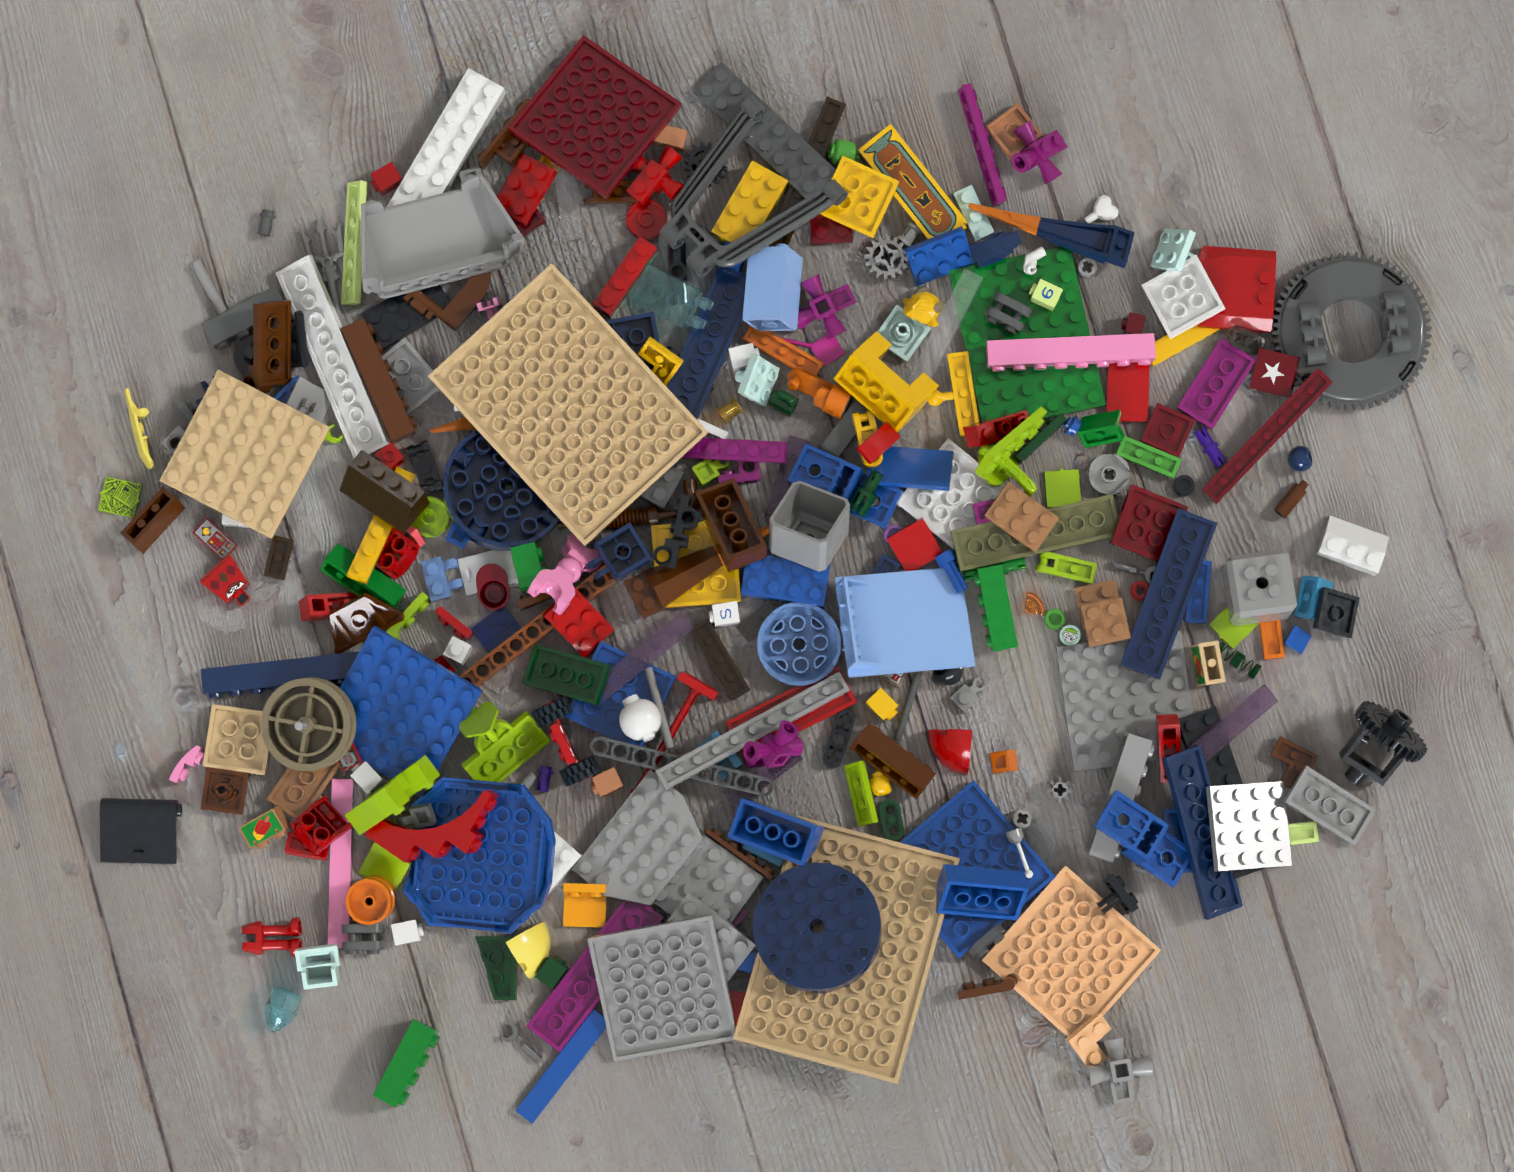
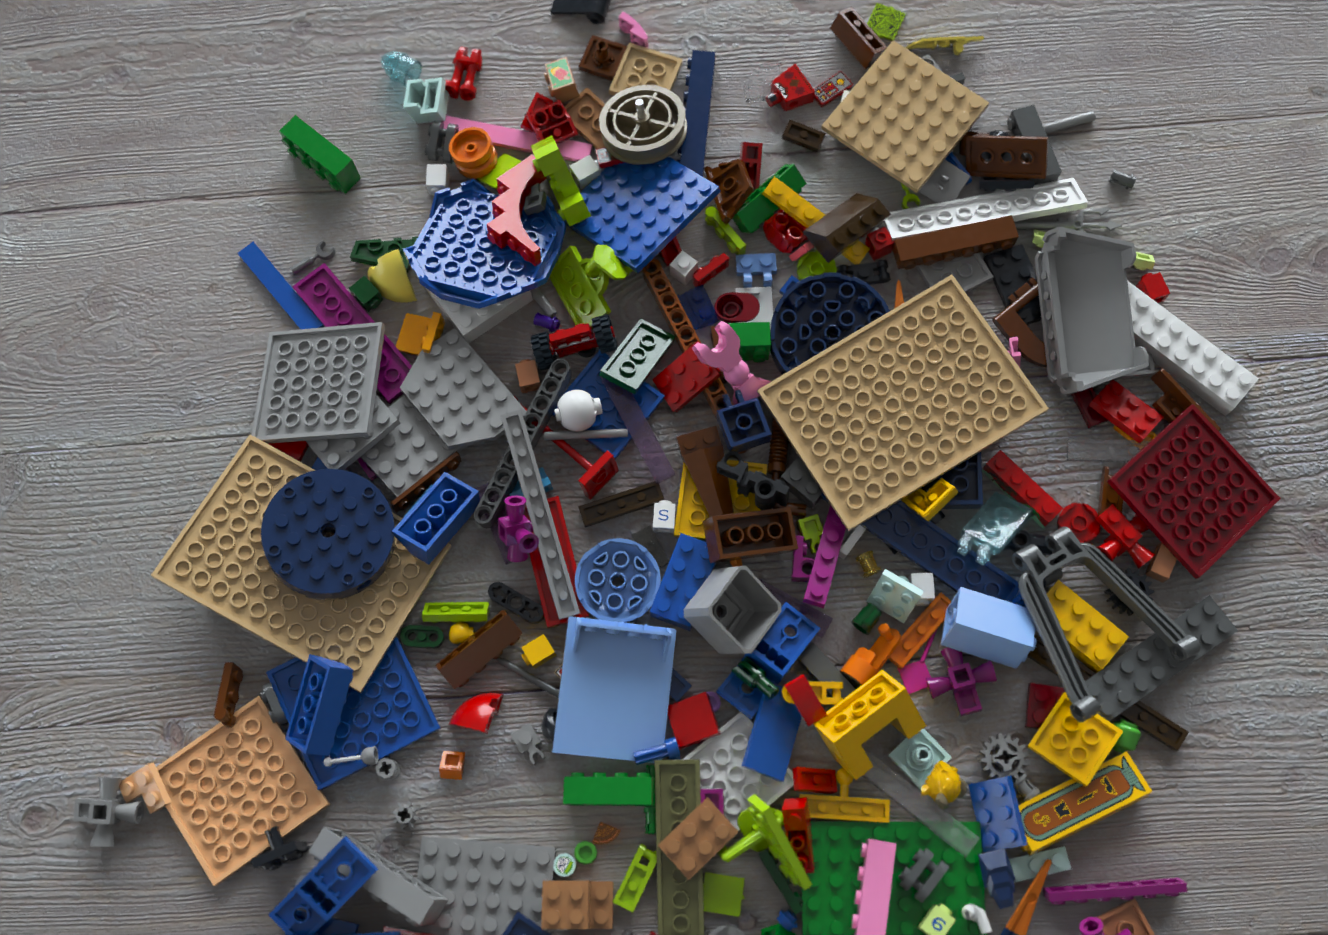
camera: 105 degrees right, 10 degrees down
(945, 423) = (814, 780): none -> red plate

